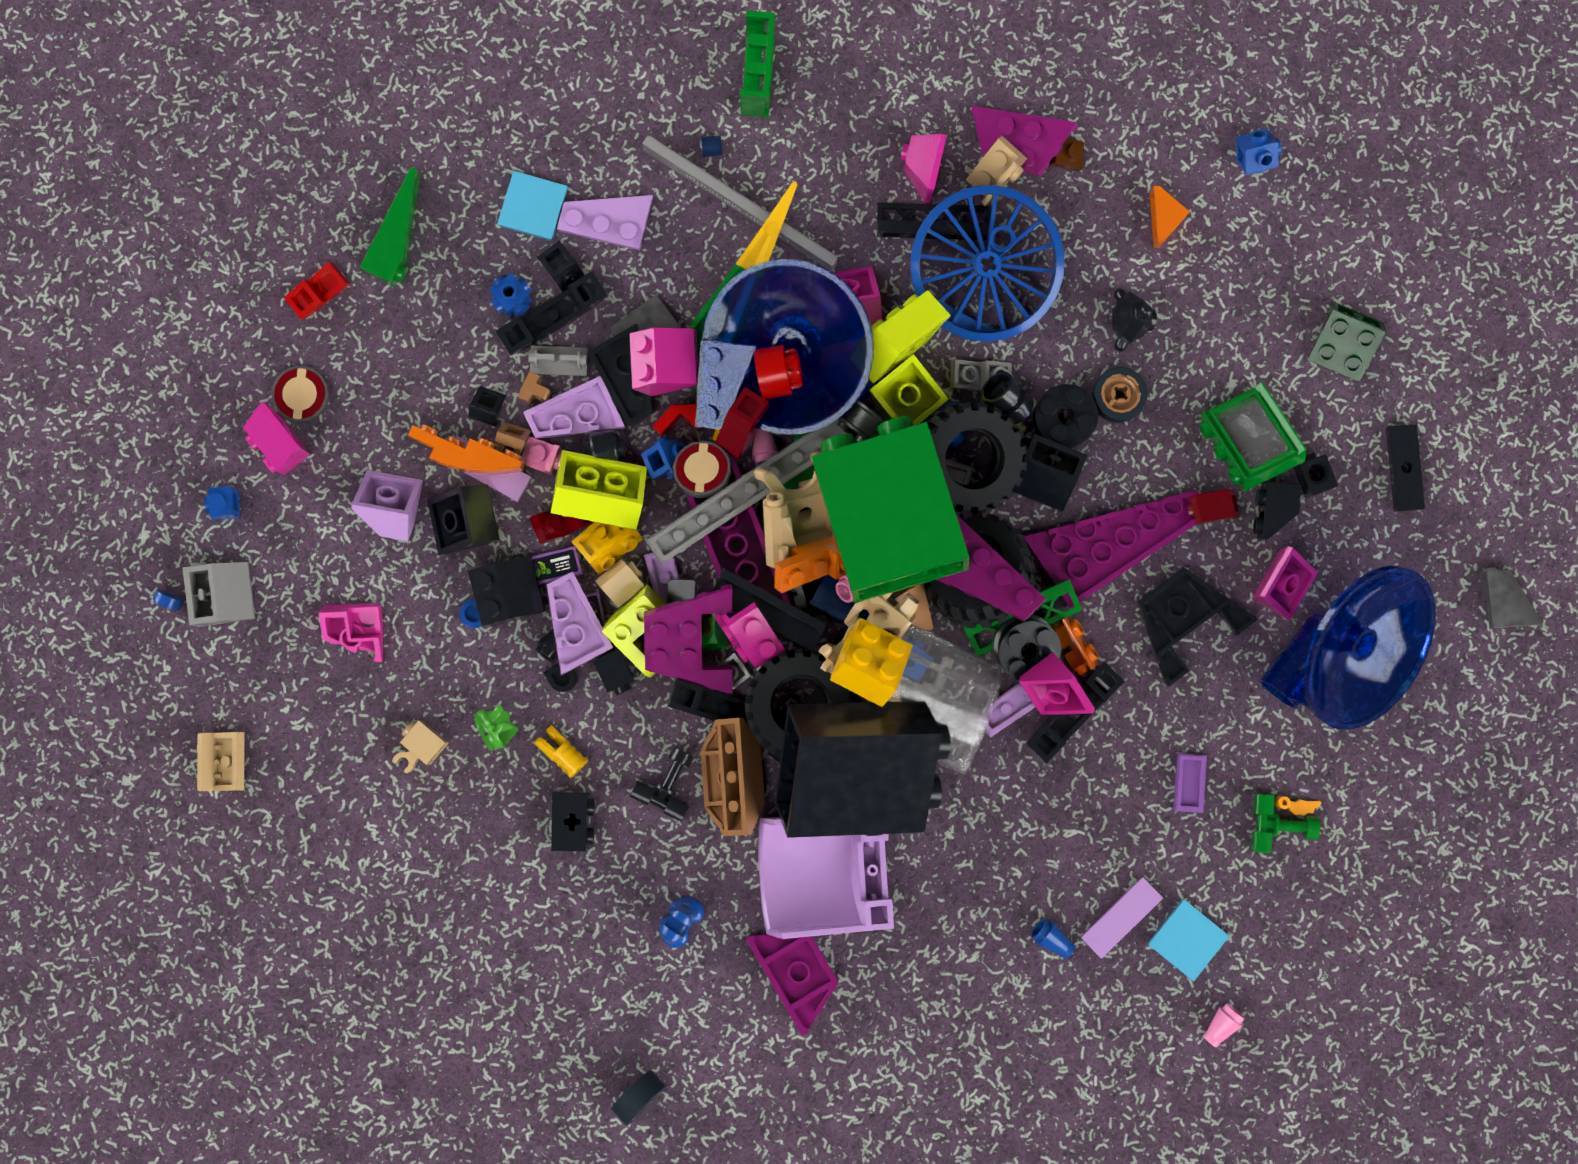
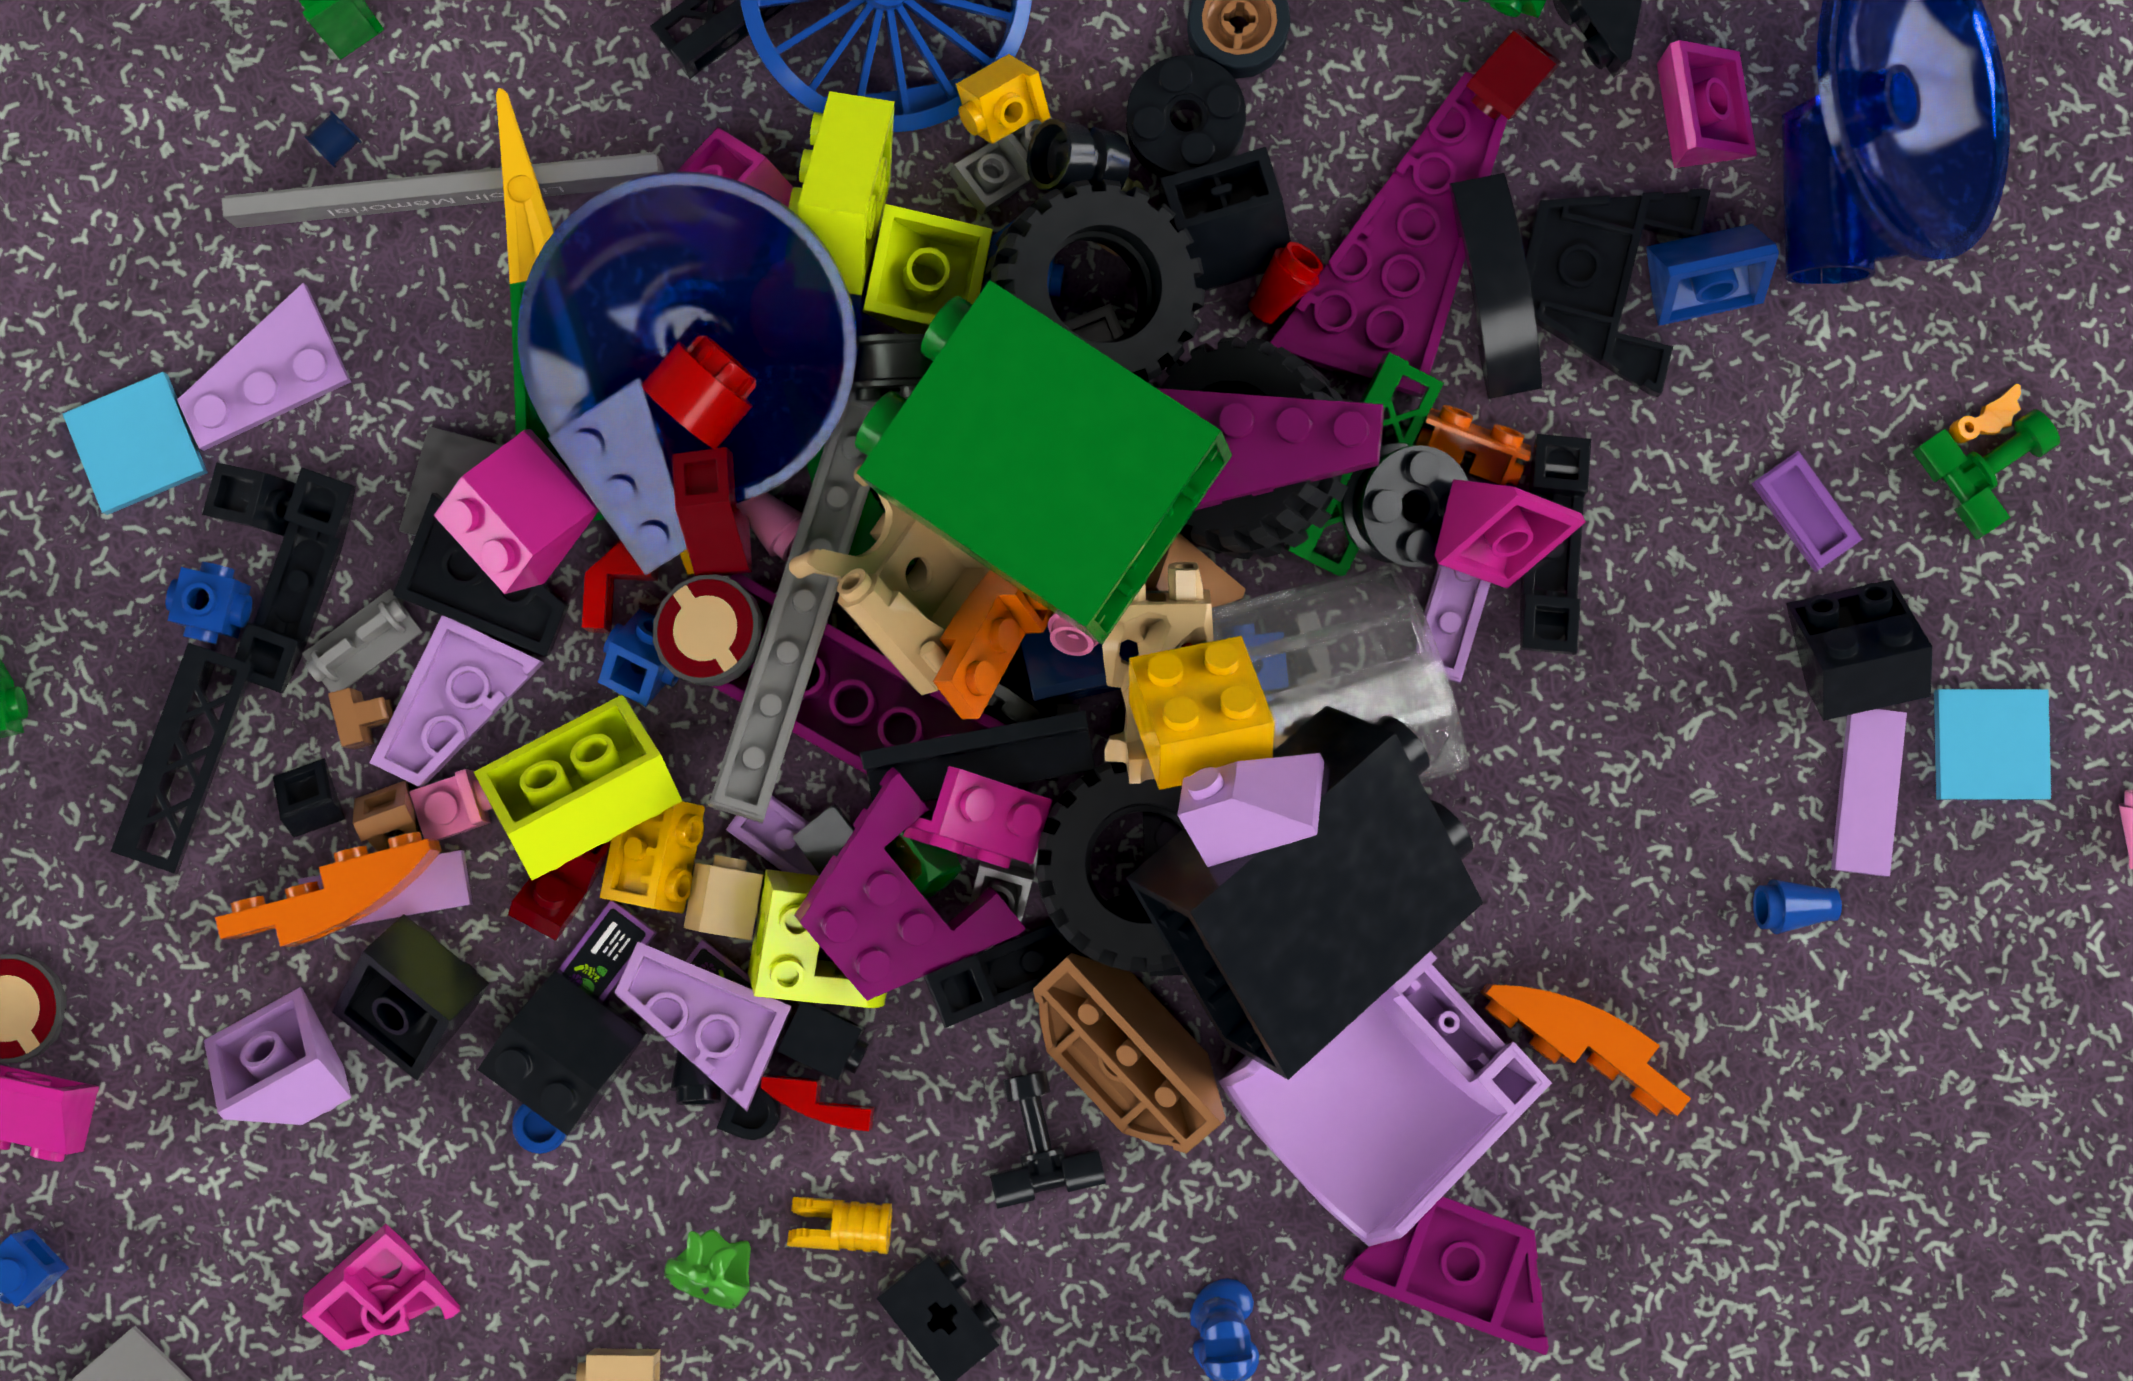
camera: 30 degrees left, 0 degrees up
(443, 343) = (165, 758): none -> black fence
(588, 688) = (804, 1097): none -> red slope
(605, 445) = (535, 712): black head -> none
(860, 715) = (1251, 805): none -> lavender slope
(919, 911) = (1570, 1026): none -> orange slope
(996, 348) = (1001, 99): none -> yellow brick
(1054, 515) = (1286, 280): none -> red cone
(1138, 587) = (1498, 285): none -> black slope
(1165, 857) = (1861, 649): none -> black slope
(1229, 653) = (1710, 273): none -> blue slope

